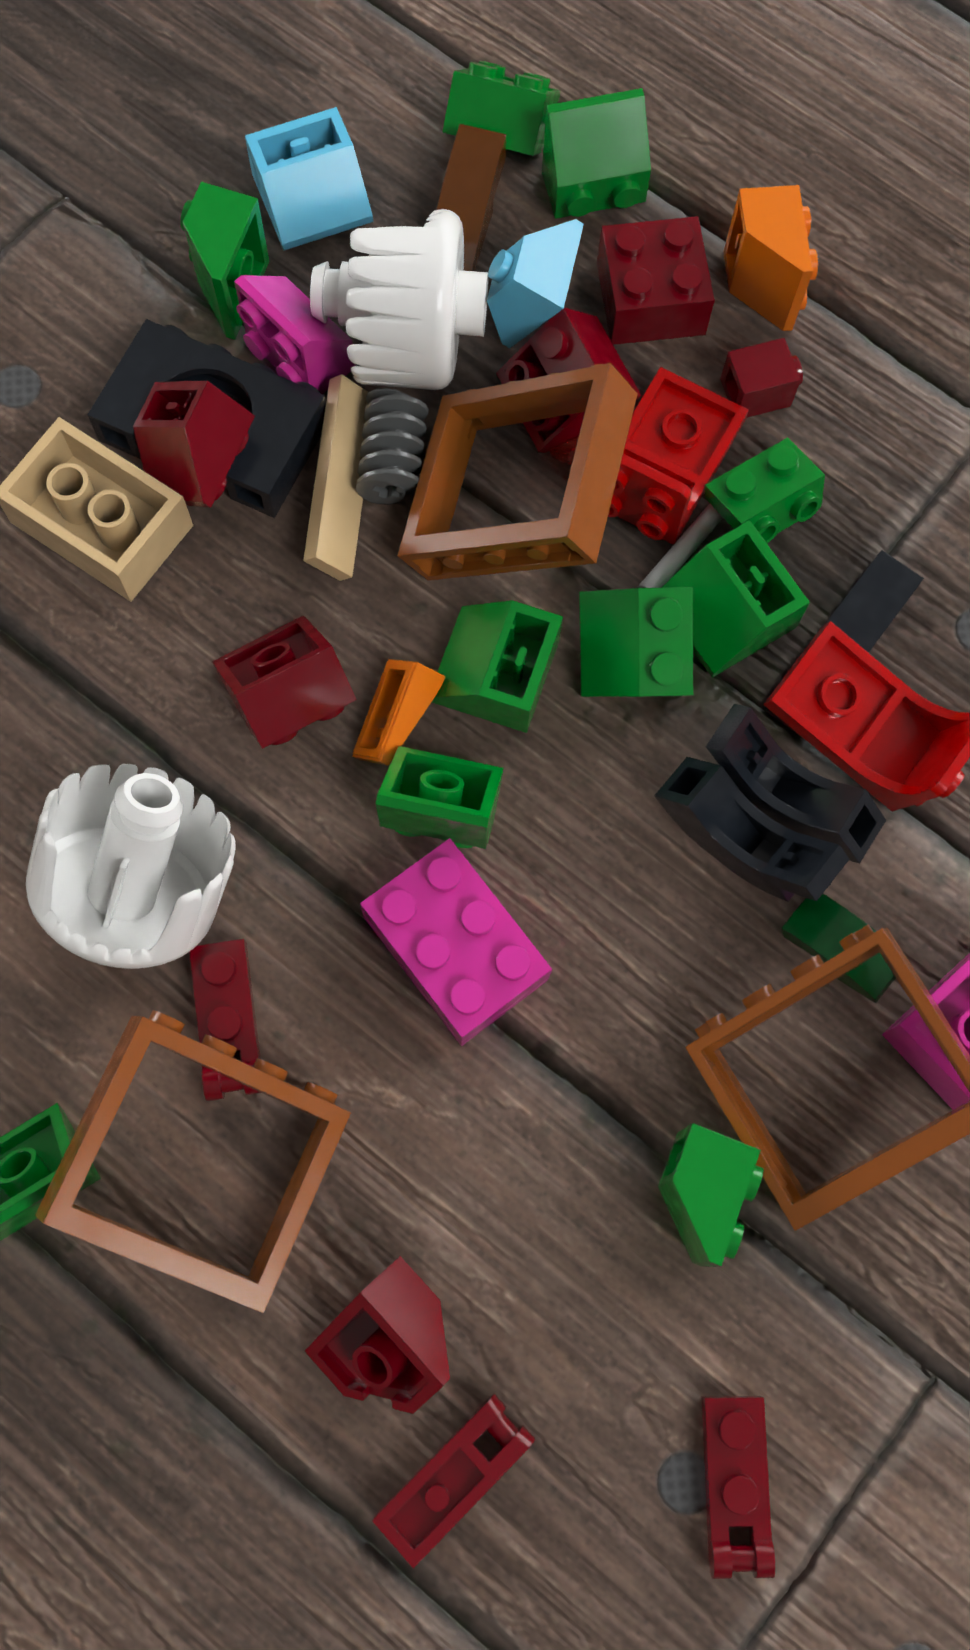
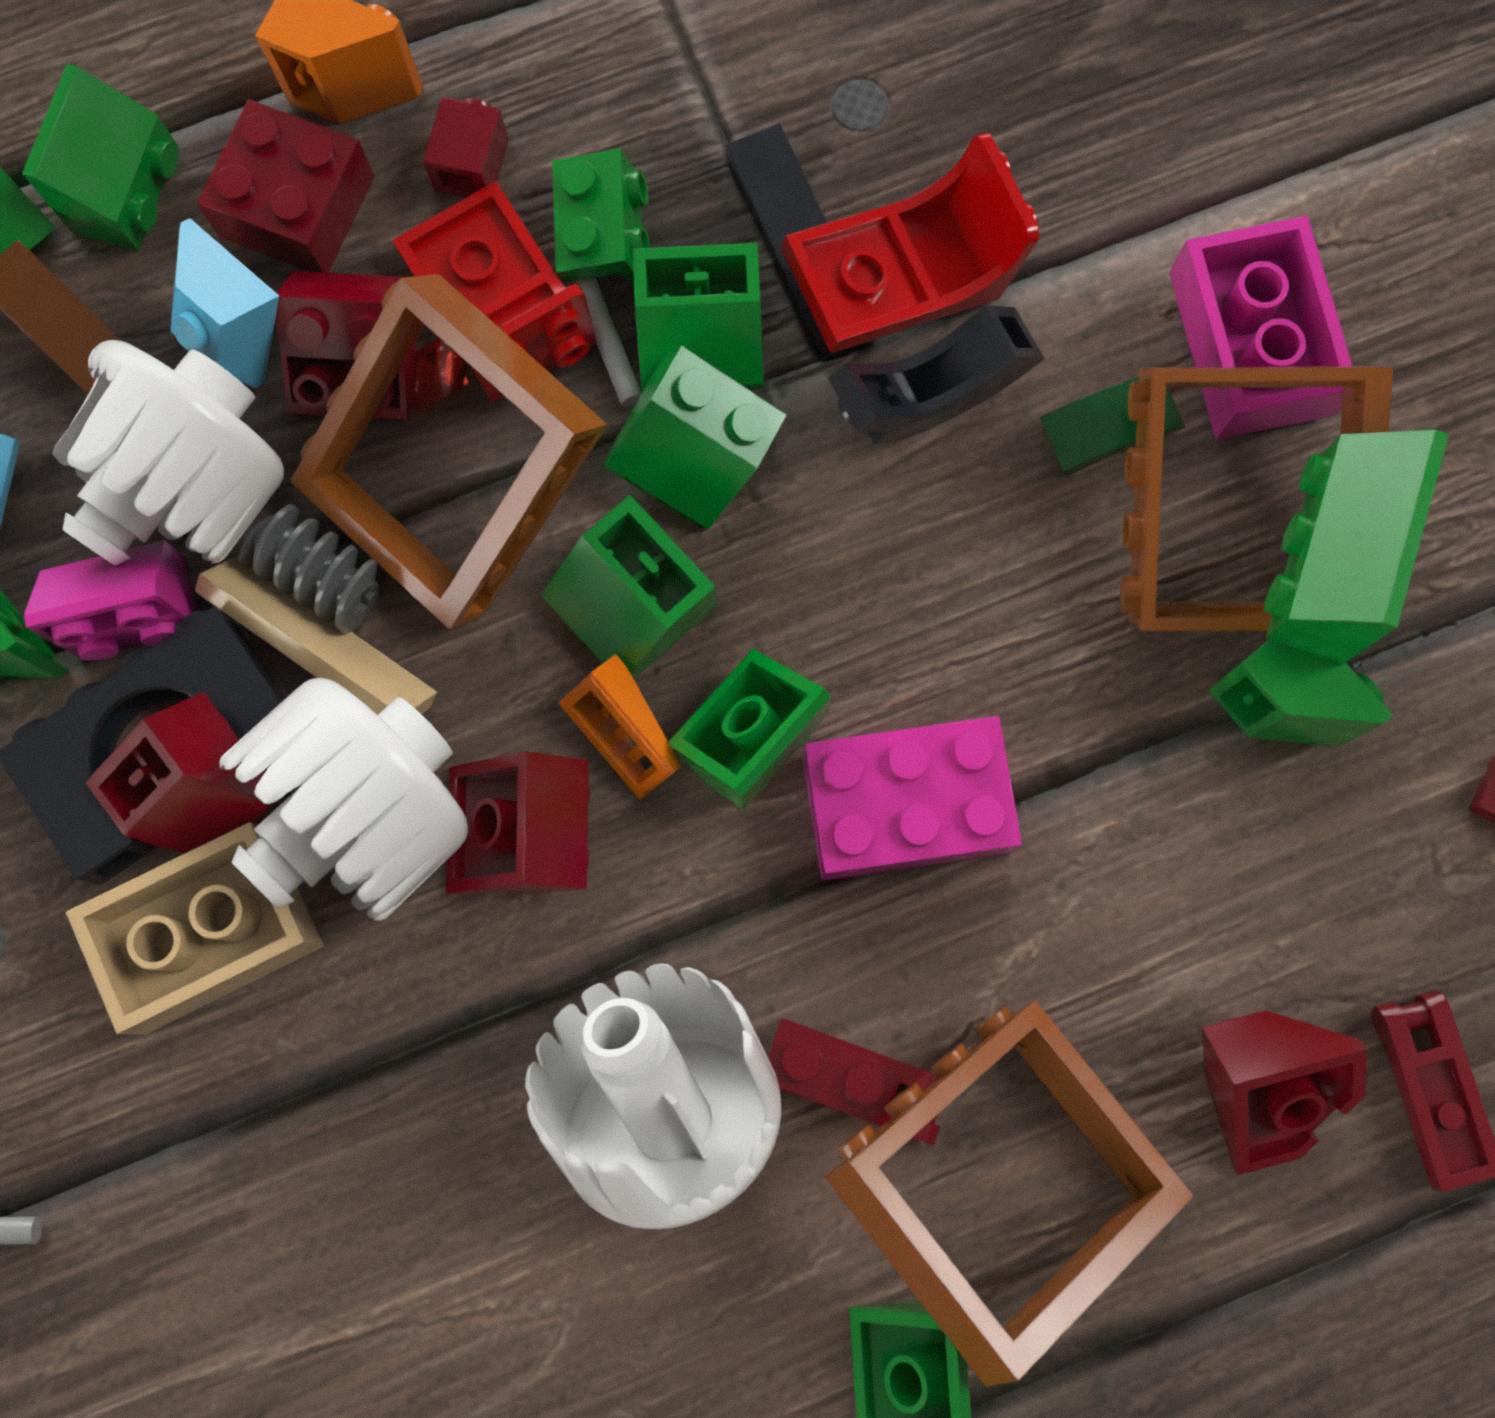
camera: 55 degrees left, 5 degrees up
(228, 545) = (361, 800): none -> white piece
(744, 838) = (939, 459): black arch -> none
(833, 1146) = (1354, 541): none -> slope

